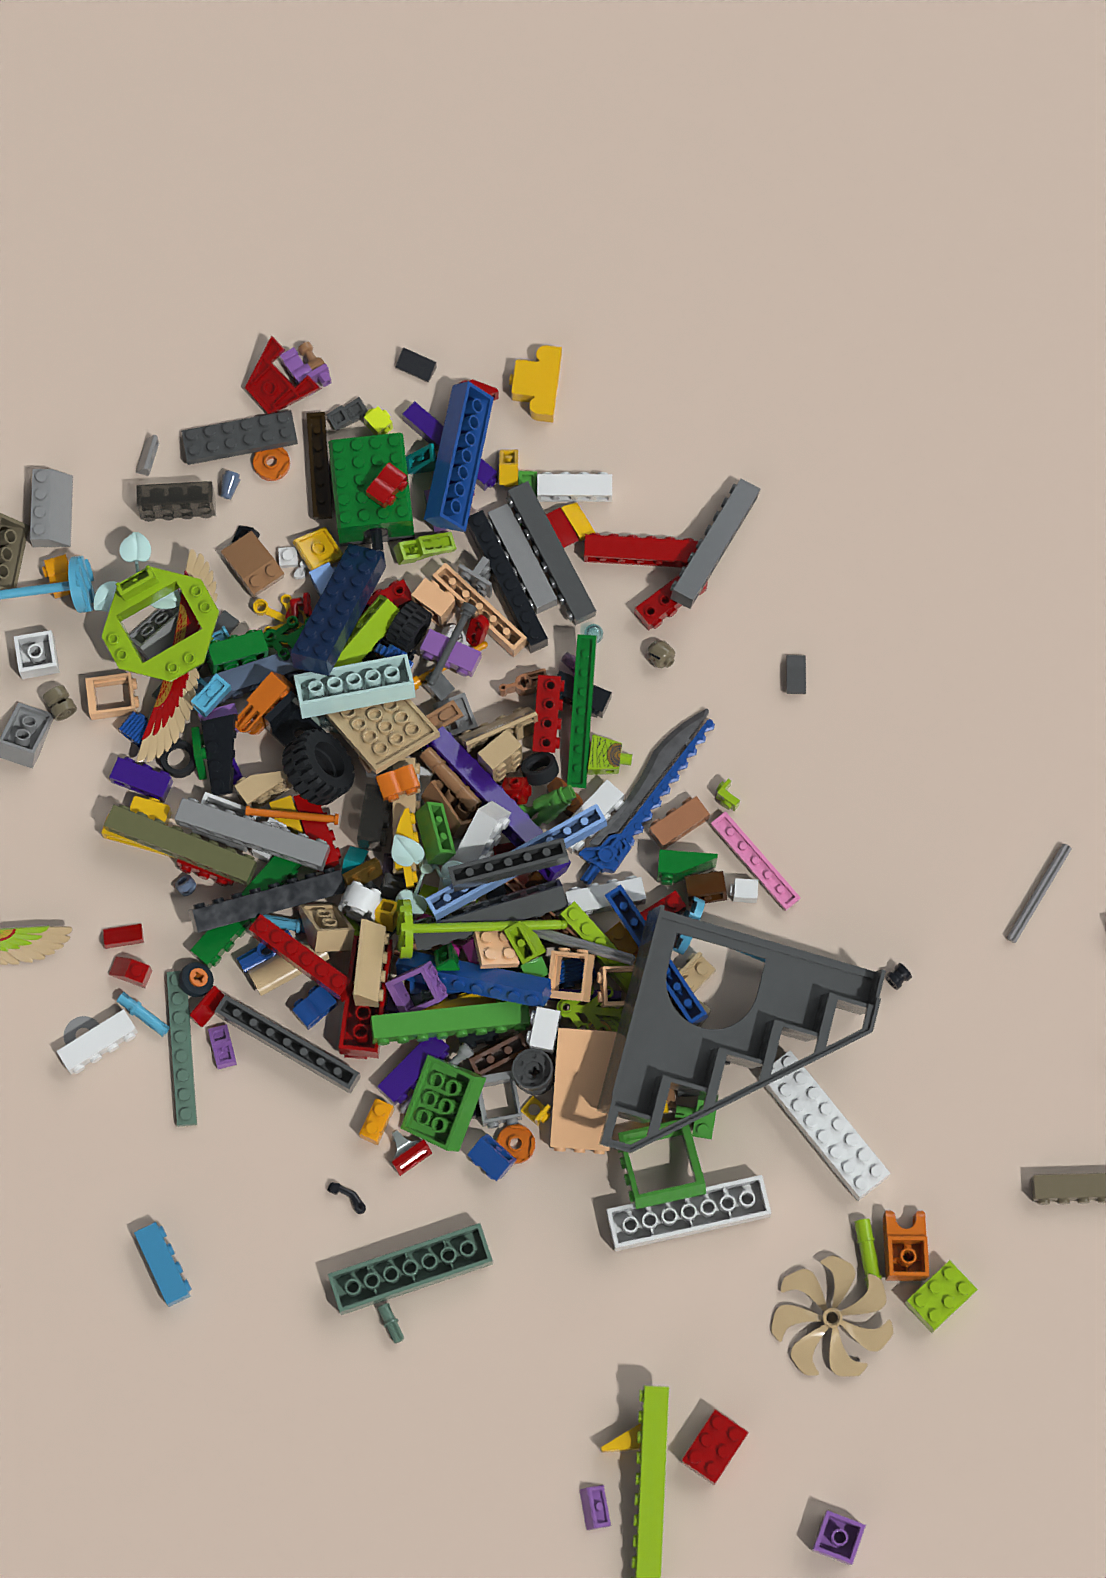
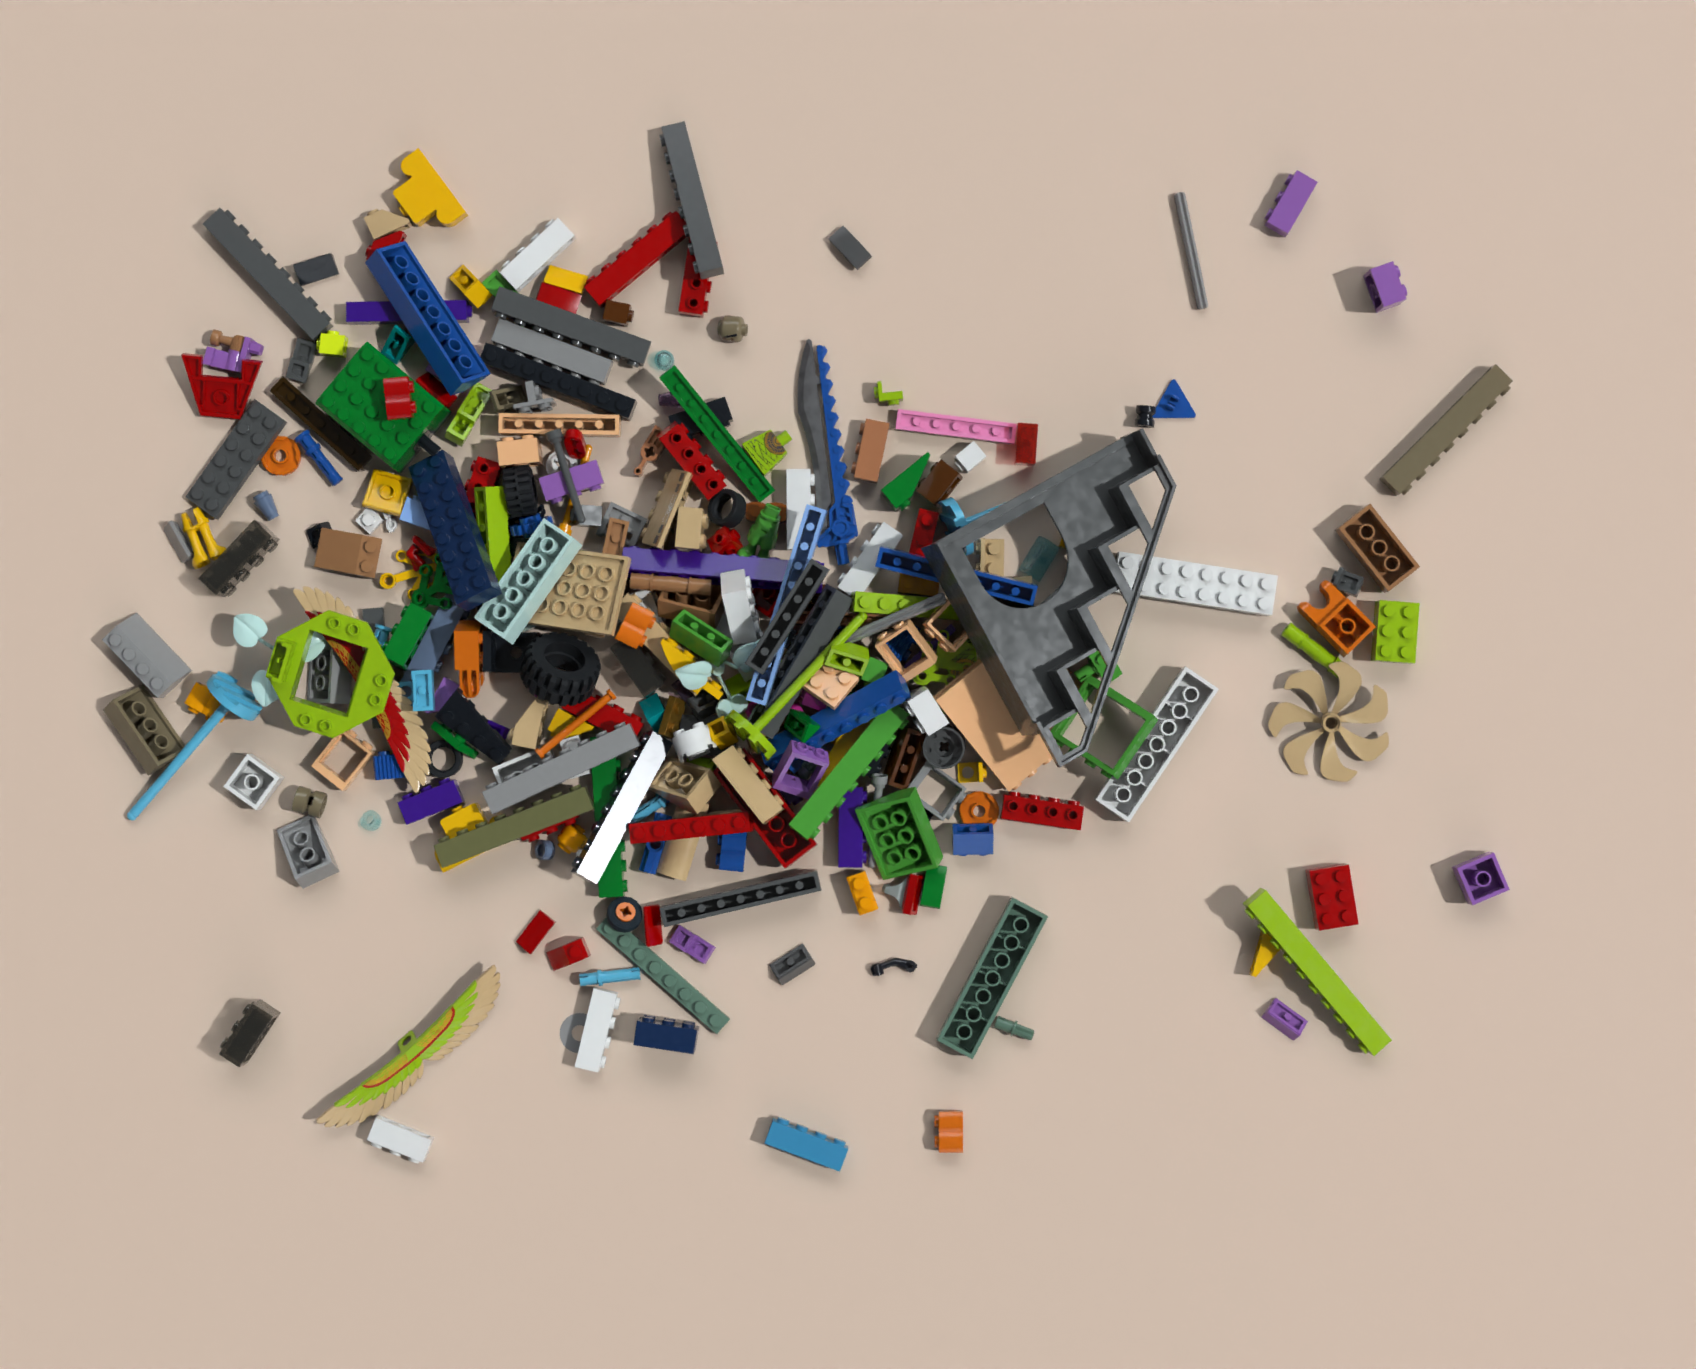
camera: 45 degrees left, 15 degrees up
(88, 760) = (376, 822): none -> clear light blue piece
(142, 1089) = (666, 1034): none -> dark blue brick
(163, 455) = (214, 550): none -> yellow piece
(211, 891) = (571, 838): none -> light orange head
(273, 1353) = (949, 1131): none -> orange brick
(278, 1128) = (792, 964): none -> dark grey slope
(296, 478) = (313, 450): none -> blue pin
(380, 339) = (267, 274): none -> dark grey brick
(418, 512) = (436, 389): none -> red slope
(431, 1166) = (933, 887): none -> green slope
(458, 556) = (505, 398): none -> dark tan slope
(491, 374) = (385, 223): none -> tan slope
(560, 1185) = (1041, 811): none -> red brick
(592, 573) = (618, 313): none -> reddish brown brick
(728, 1007) = (1039, 558): none -> clear light blue slope
(793, 917) = (1026, 444): none -> clear red brick
(927, 988) = (1174, 403): none -> blue piece
(938, 1228) = (1347, 582): none -> dark grey bracket
(982, 1223) = (1377, 548): none -> medium nougat brick

